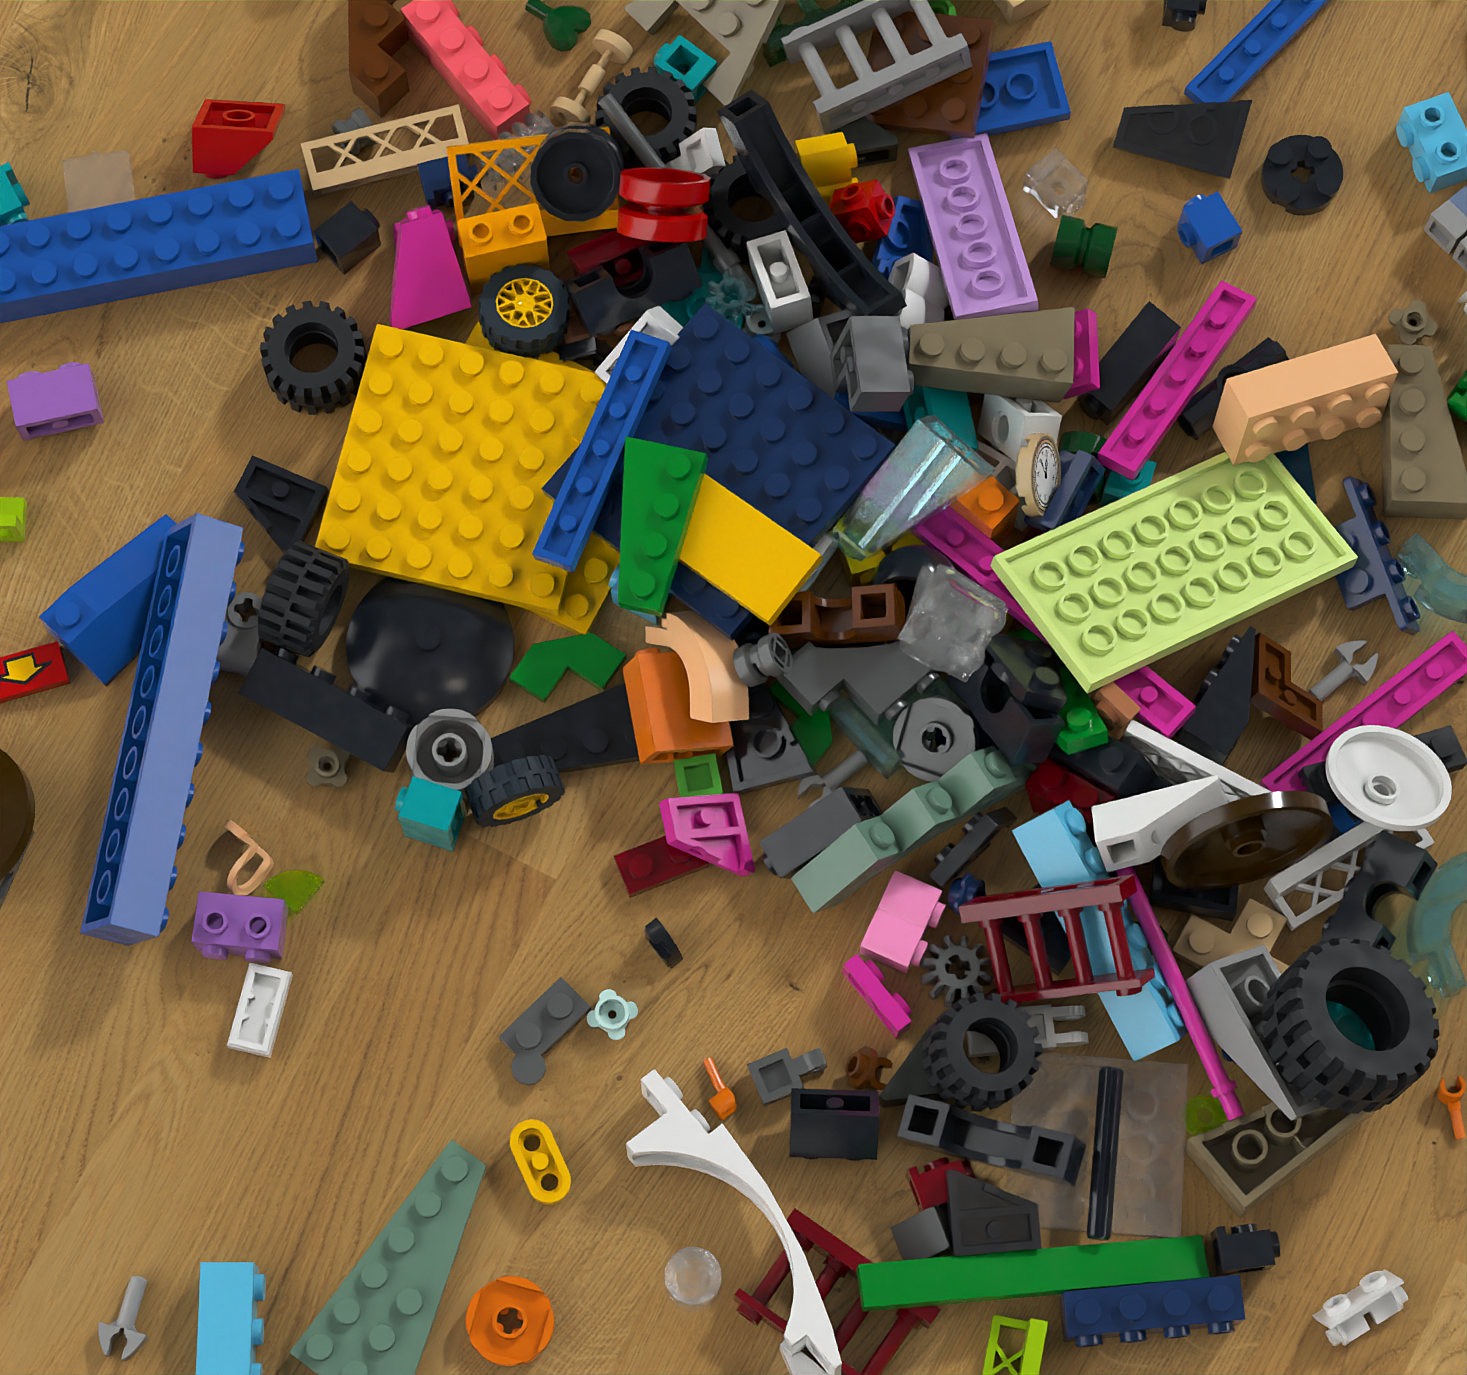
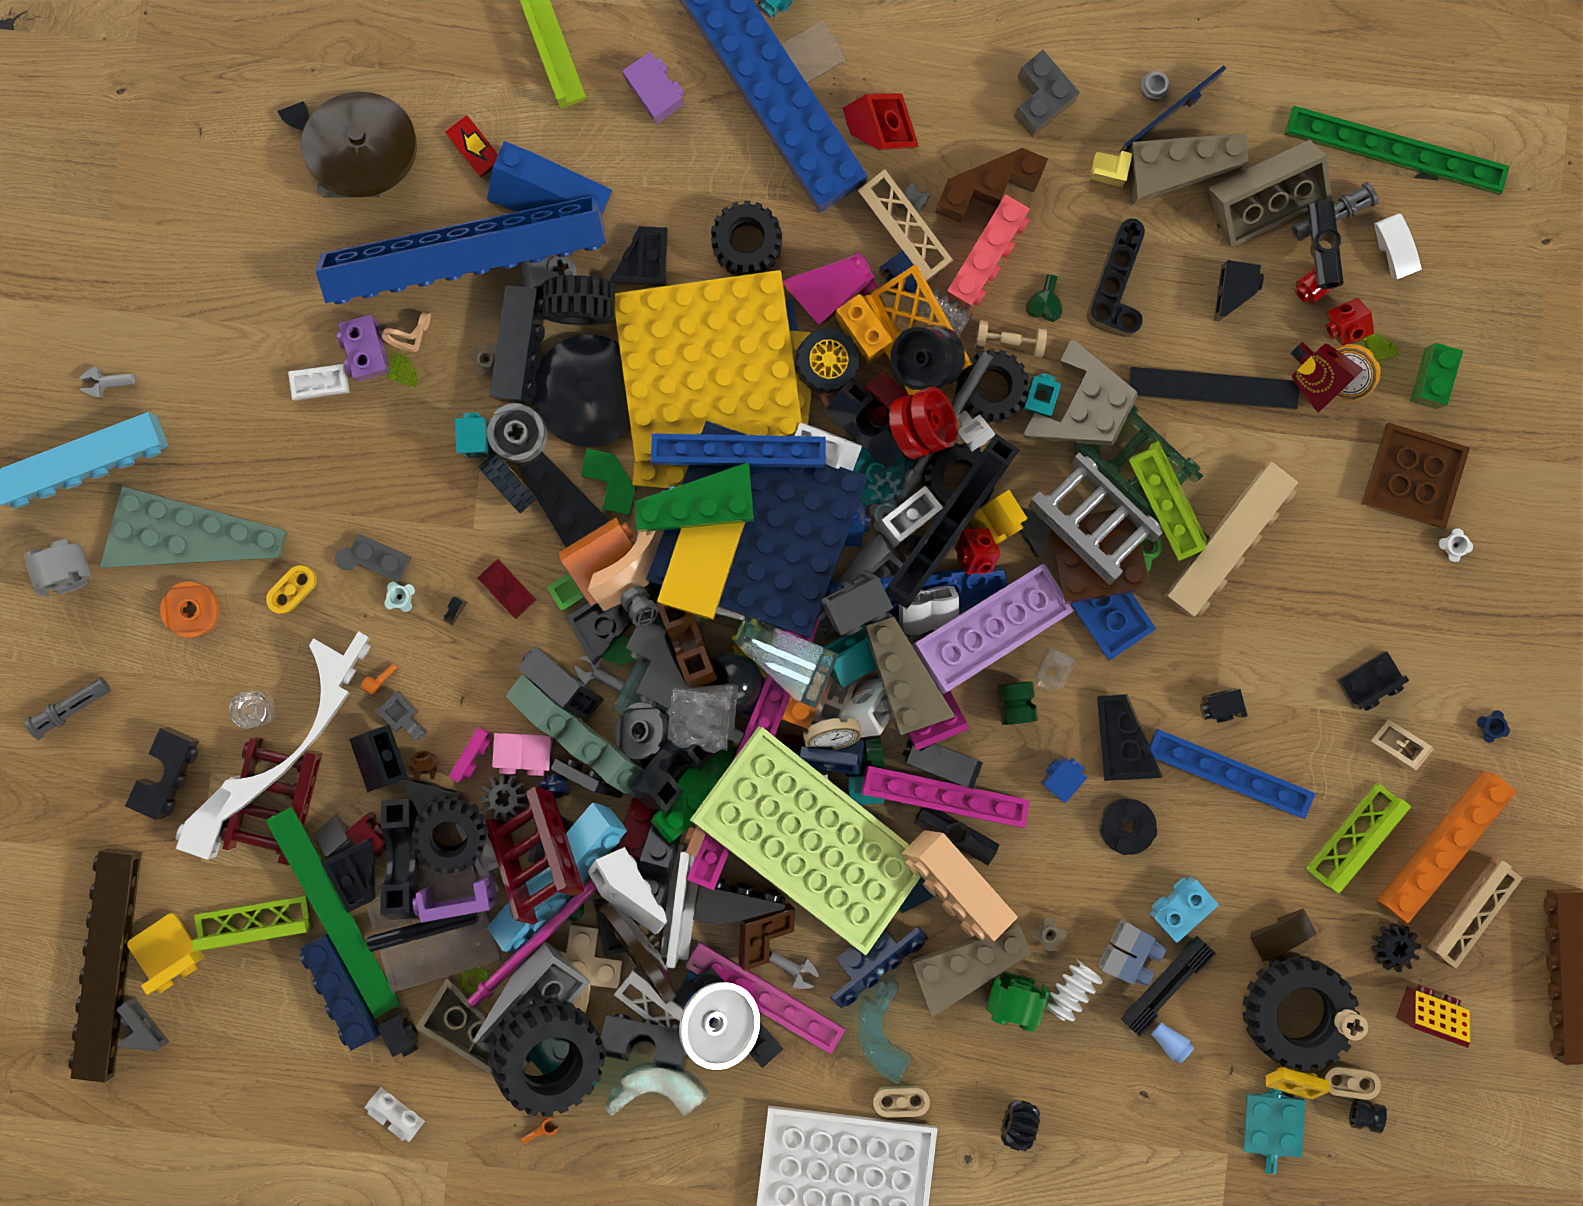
camera: 70 degrees right, 15 degrees up
(348, 236) = (839, 226): black brick -> none
(585, 349) = (818, 407): black tile -> none
(709, 829) = (534, 611): dark pink wing -> none
(1029, 671) = (693, 777): black wing -> none
(1093, 1036) = (483, 900): none -> medium lavender panel

